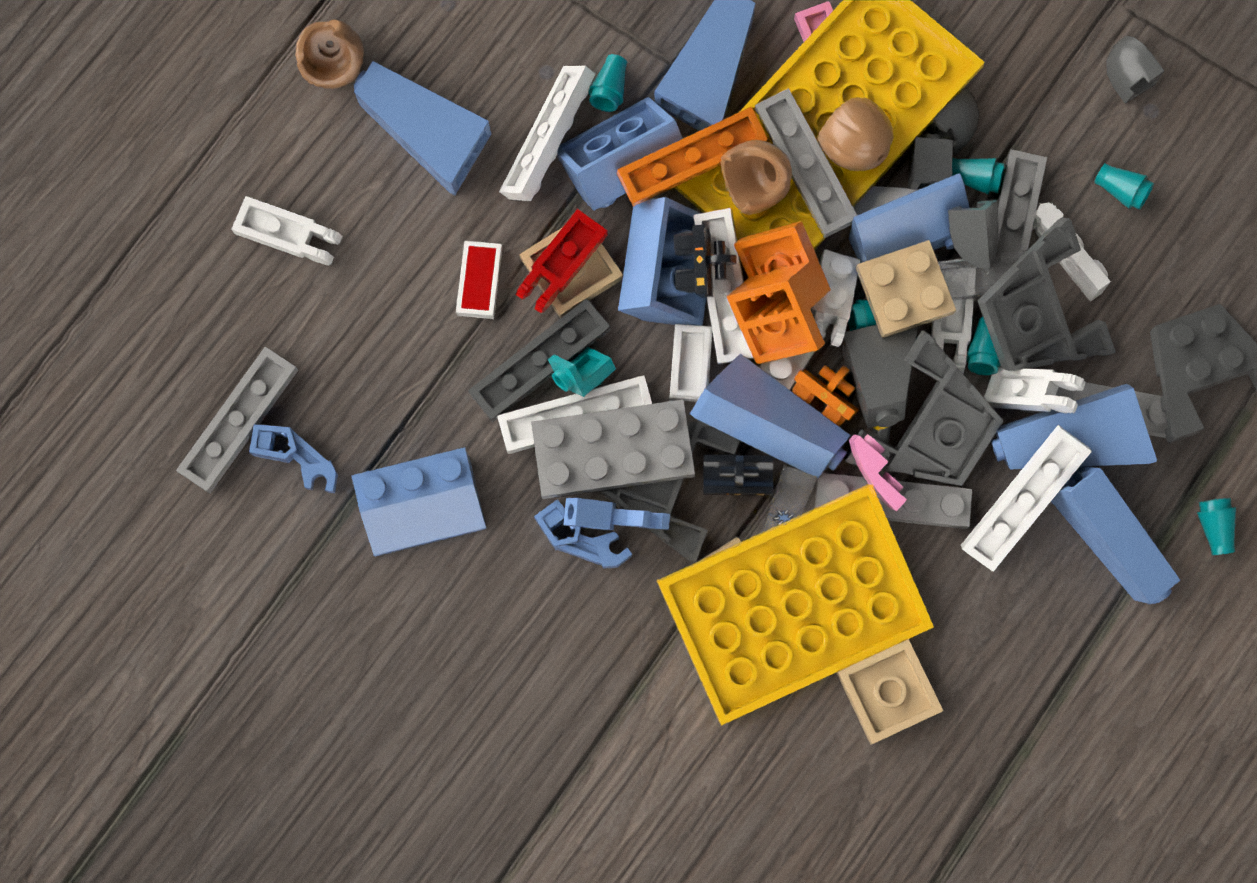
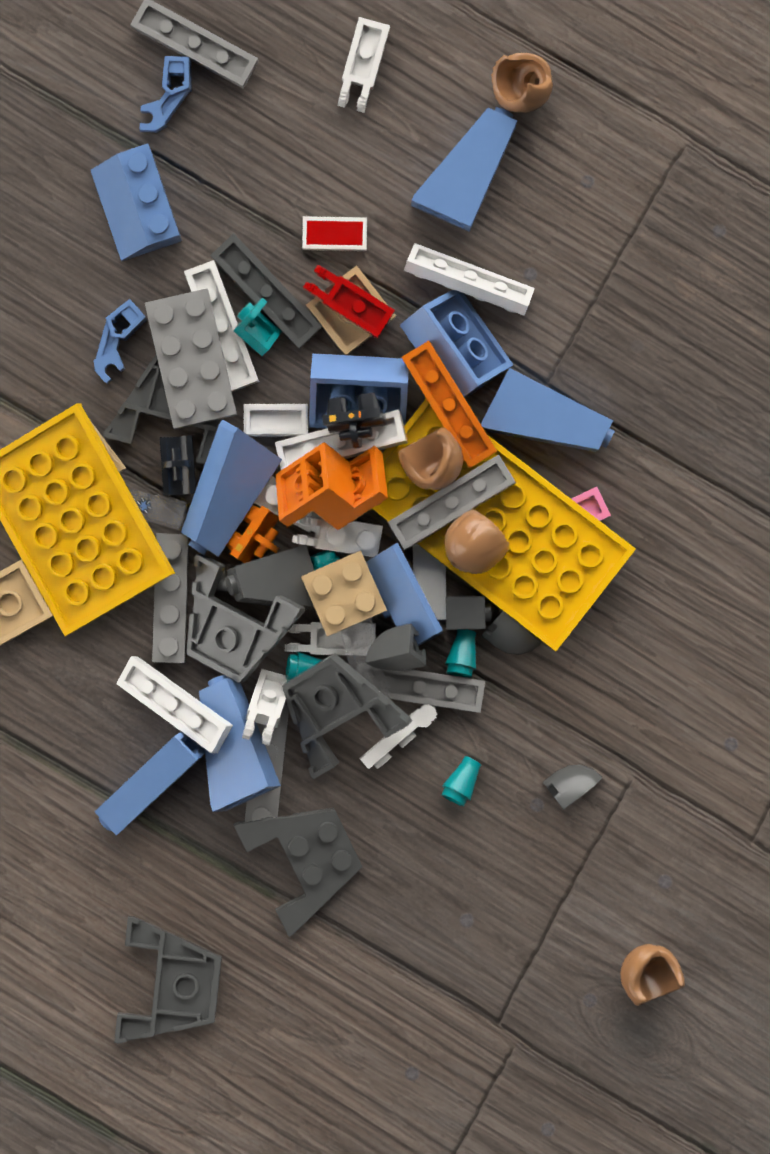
camera: 75 degrees right, 10 degrees up
(604, 516) = (132, 354): medium blue piece -> none
(608, 87) = (518, 329): teal cone -> none
(870, 462) = (191, 572): bright pink slope -> none
(1218, 524) = (171, 869): teal cone -> none

